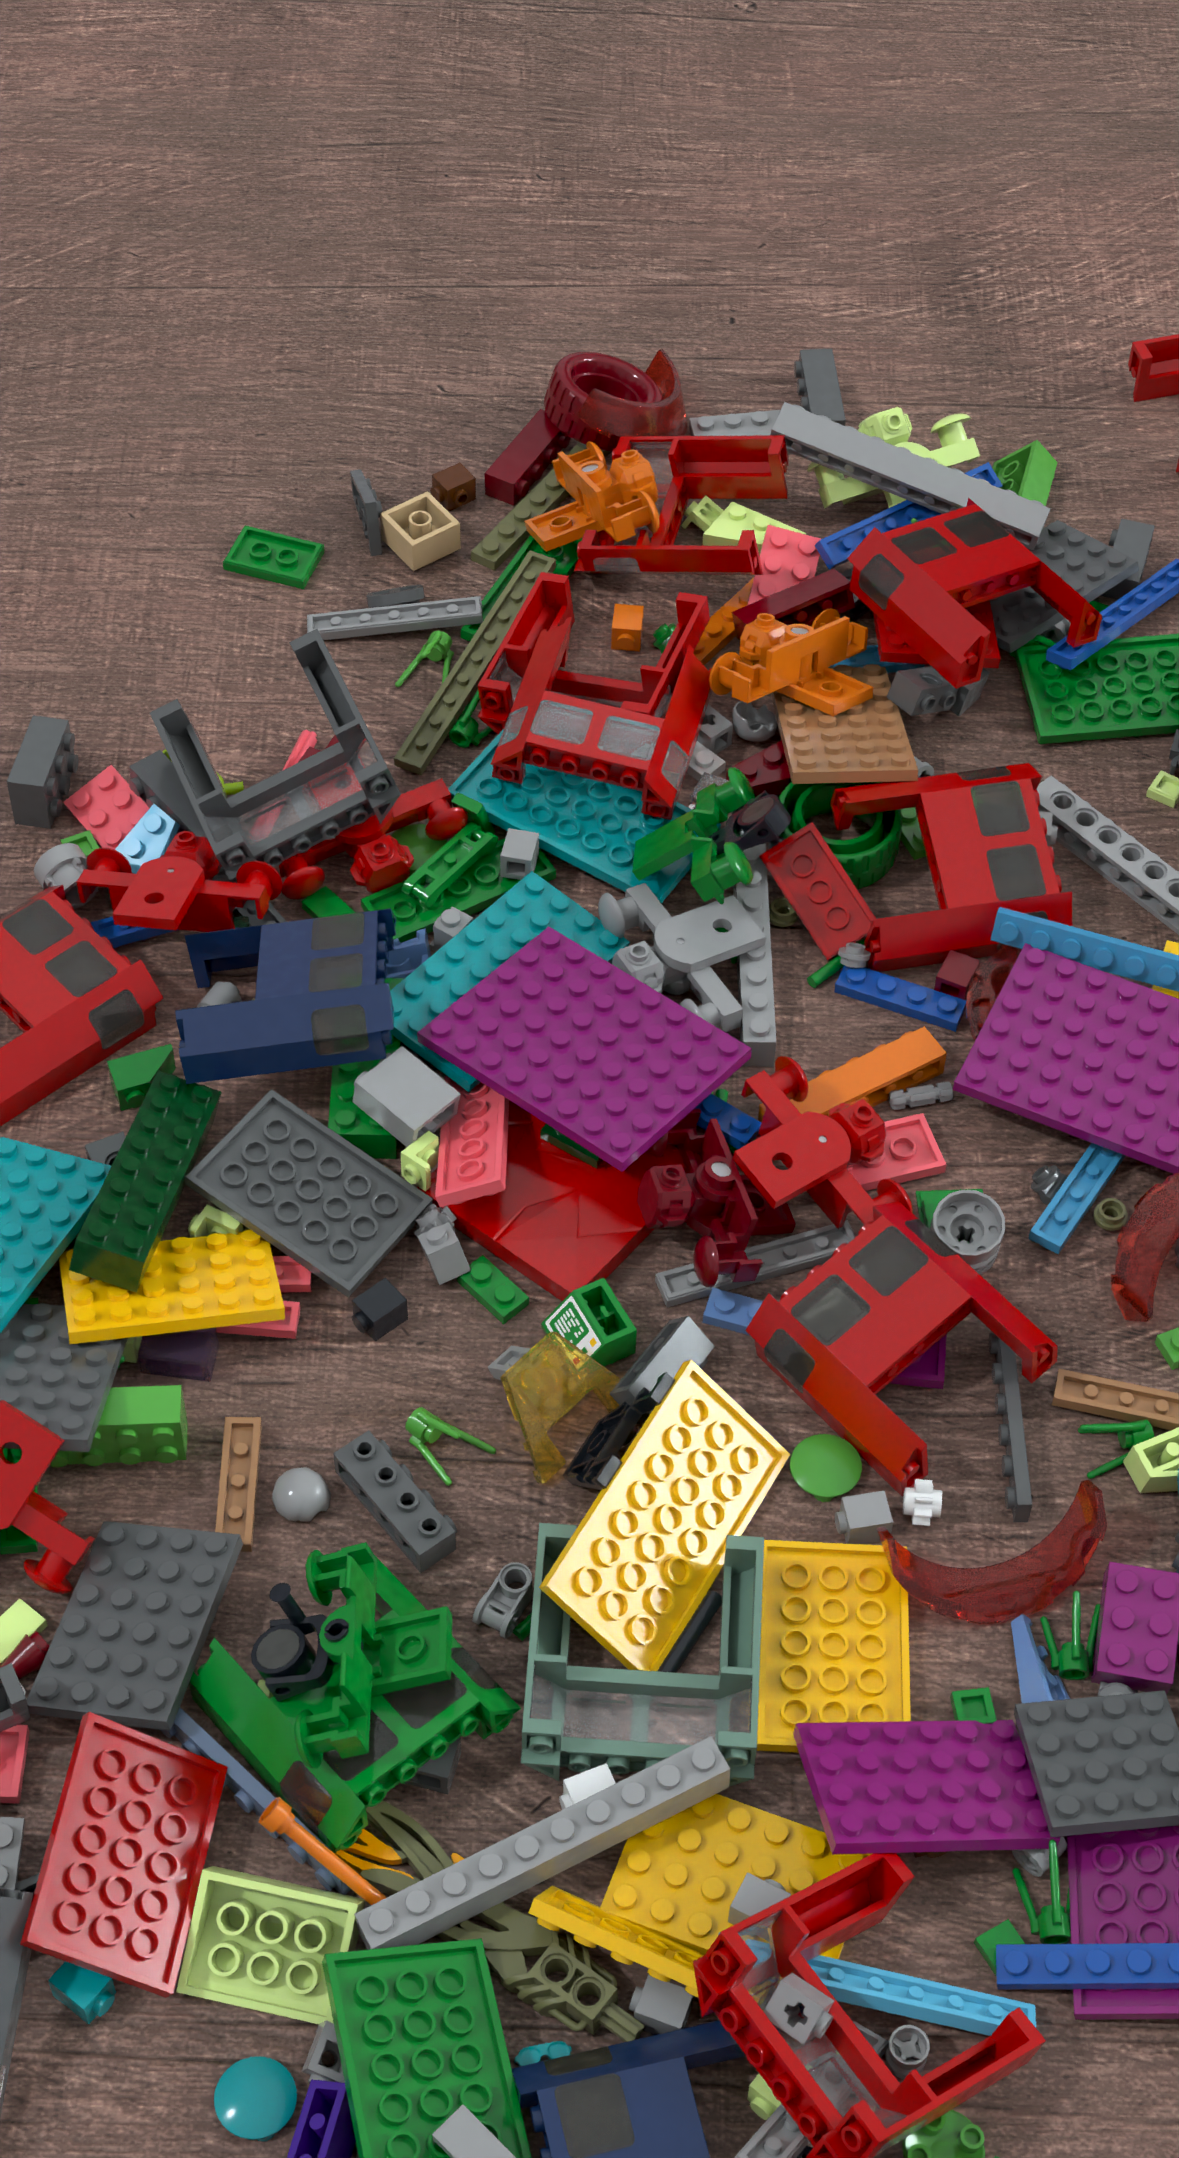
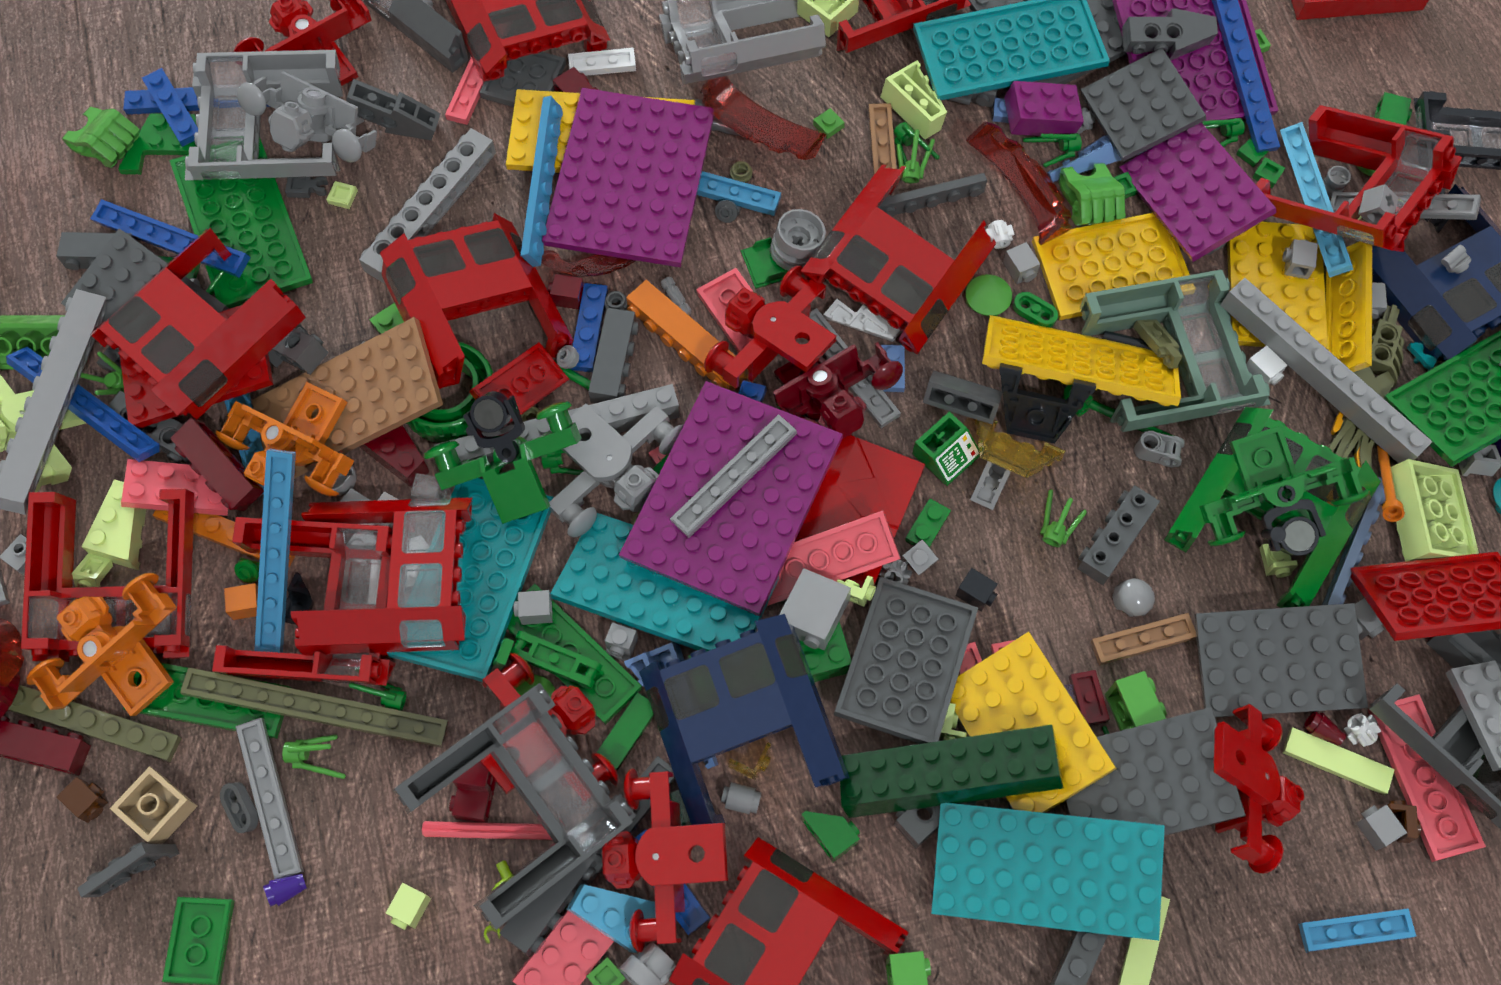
camera: 105 degrees left, 15 degrees up
(200, 1392) = (1089, 697): none -> dark red plate
(231, 706) = (407, 907): none -> yellowish green brick
(294, 617) = (283, 889): none -> dark purple cone
(604, 1040) = (733, 476): none -> light grey tile
(606, 667) = (298, 599): none -> black slope
(662, 623) = (274, 550): none -> dark azure plate
(666, 2107) = (1456, 260): none -> light grey plate
(674, 1646) = (1159, 341): none -> olive hinge
(779, 1516) = (1036, 309): none -> green plate
(843, 1004) = (613, 355): none -> dark grey brick
(933, 1024) = (613, 297): none -> dark grey plate
(950, 1950) = (1270, 171): none -> green plate
(956, 1643) = (1093, 197): none -> bright green piece
(1066, 1423) = (913, 171): none -> bright green plant

